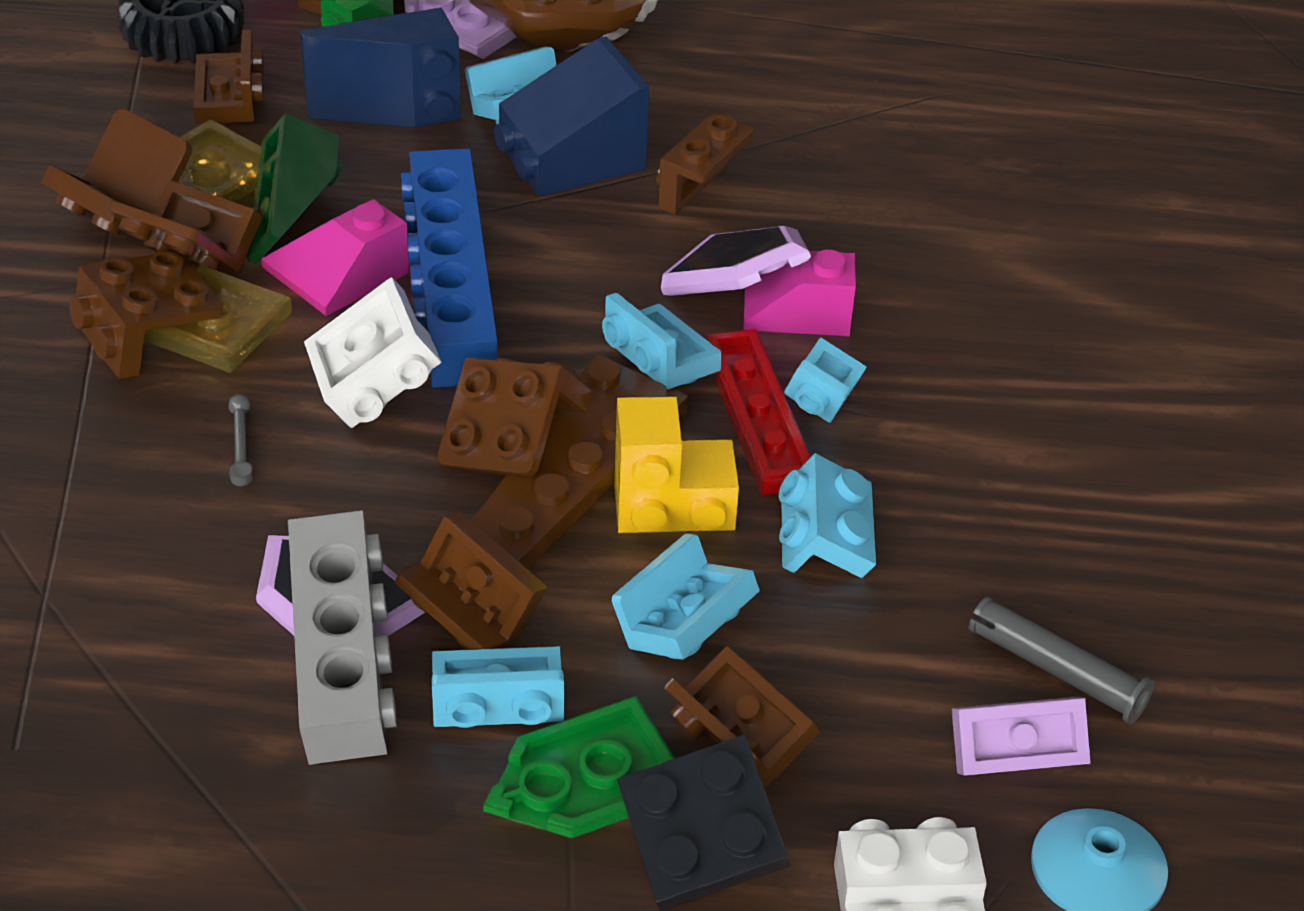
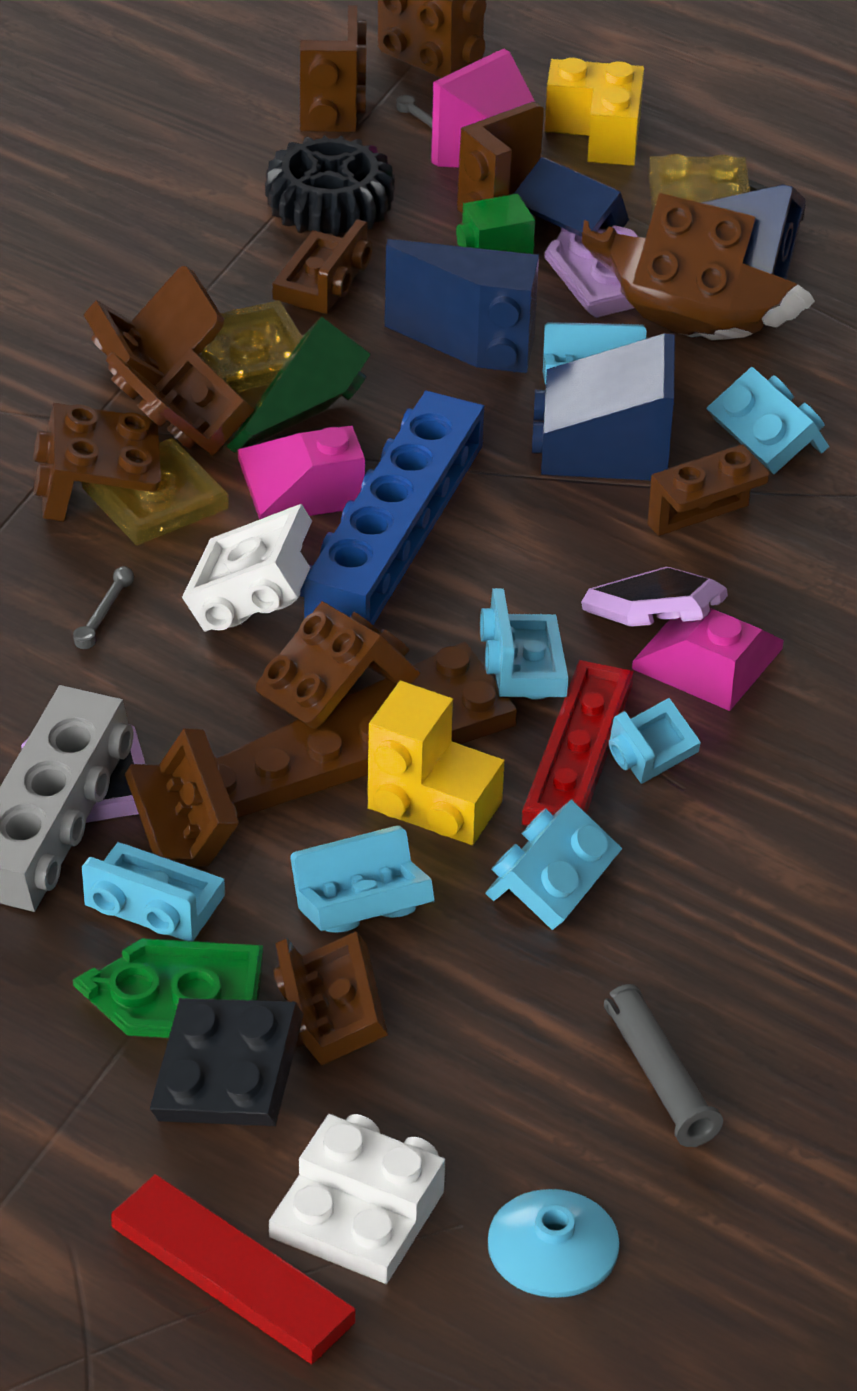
camera: 30 degrees right, 0 degrees up
(691, 92) = (766, 420): none -> medium azure bracket
(1021, 736) = (561, 1109): lavender plate -> none

